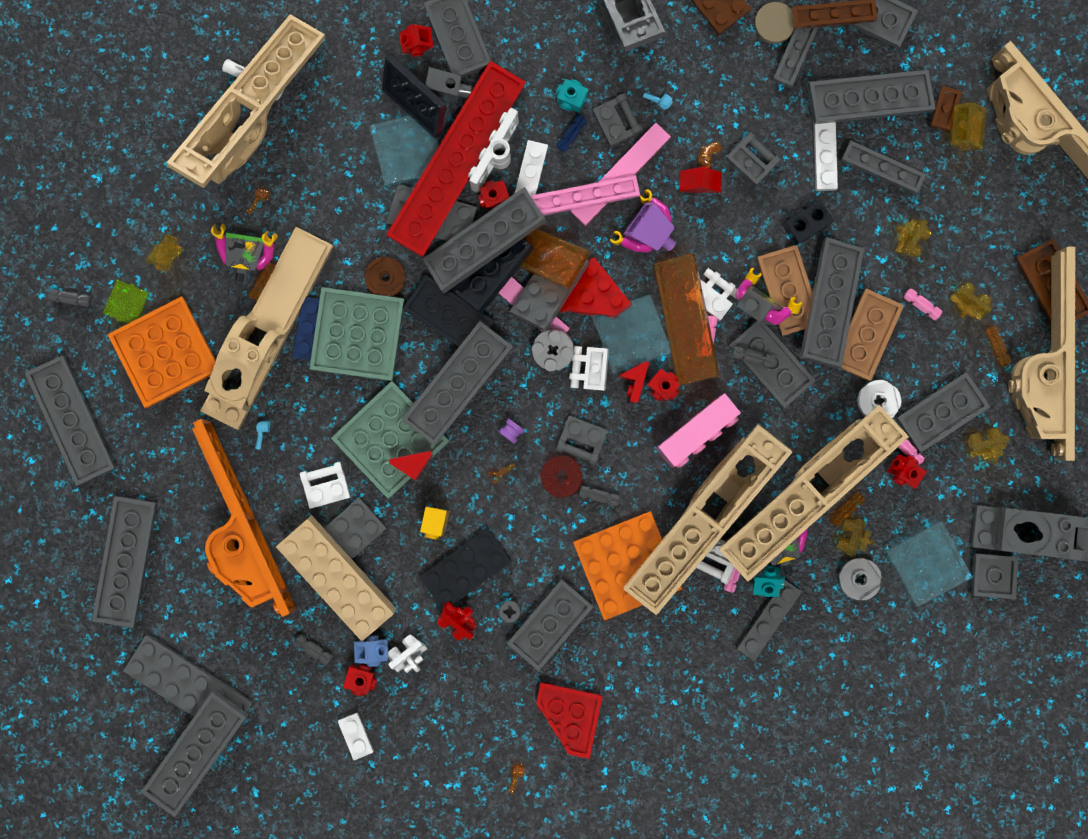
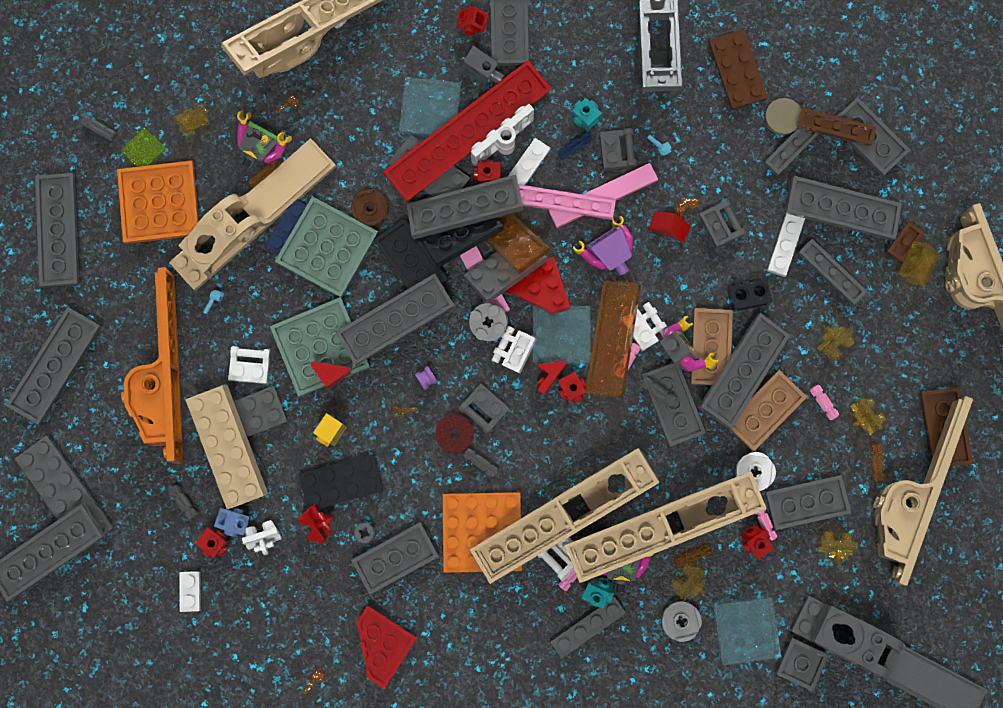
camera: 20 degrees right, 5 degrees down
(413, 96) = (451, 66): black plate -> none
(698, 430) = (587, 437): bright pink brick -> none

